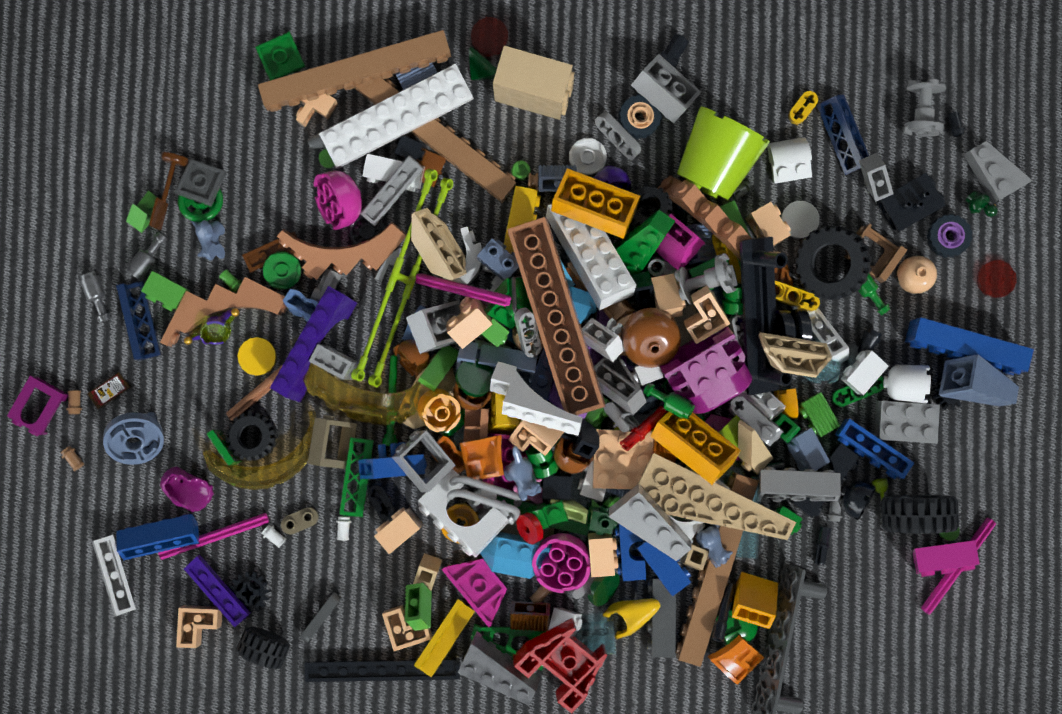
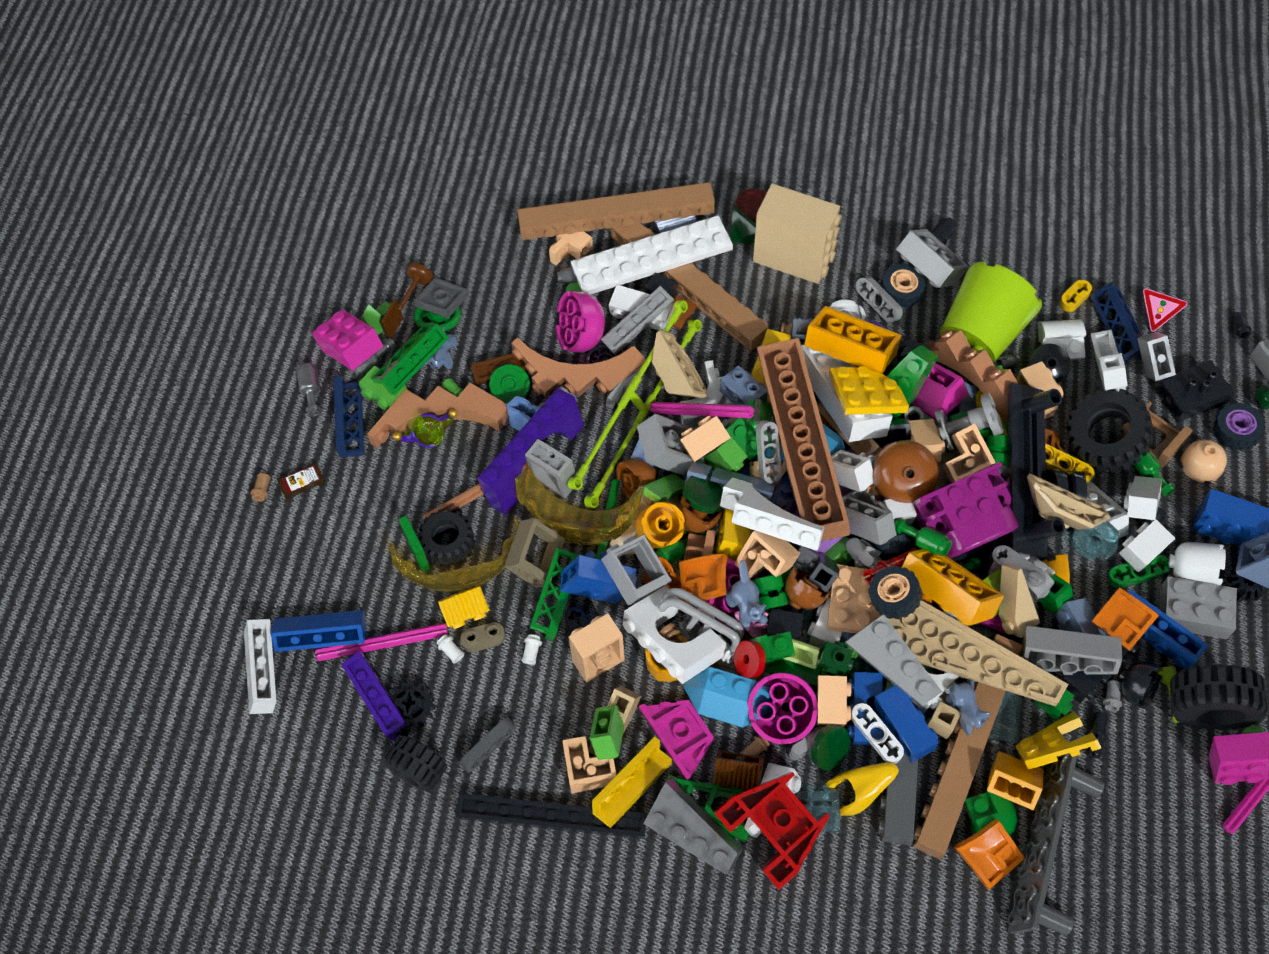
camera: 10 degrees right, 25 degrees down
(39, 427) = (216, 504): magenta panel -> none
(72, 458) = (241, 536): medium nougat pin -> none
(120, 245) = (347, 339): none -> dark pink brick
(133, 425) = (335, 518): sand blue piece -> none
(185, 263) = (410, 357): none -> green fence
(190, 494) = (363, 584): magenta piece -> none
(192, 621) = (340, 725): light nougat brick -> none
(257, 356) = (466, 464): yellow tile -> none
(277, 499) = (463, 606): none -> yellow brick
(280, 56) = (541, 195): green plate -> none
(458, 512) = (669, 632): none -> medium nougat bush
(520, 170) = (774, 321): bright green tile -> none
(611, 262) = (867, 391): none -> yellow plate
(626, 568) = (860, 723): none -> white beam
(636, 461) = (897, 604): none -> black wheel
(721, 623) = (973, 800): black piece -> none
(775, 181) = (1058, 355): none -> black dish
(778, 567) = (1049, 743): none -> yellow wing
(801, 218) = (1073, 390): white tile -> none
(818, 414) = (1092, 584): bright green brick -> none
(832, 189) = (1109, 361): none -> white arch
(844, 448) = (1125, 618): none -> orange plate
(861, 328) = (1143, 497): none -> white brick
(882, 115) = (1161, 308): none -> piece
(924, 115) = (1207, 315): light grey piece -> none

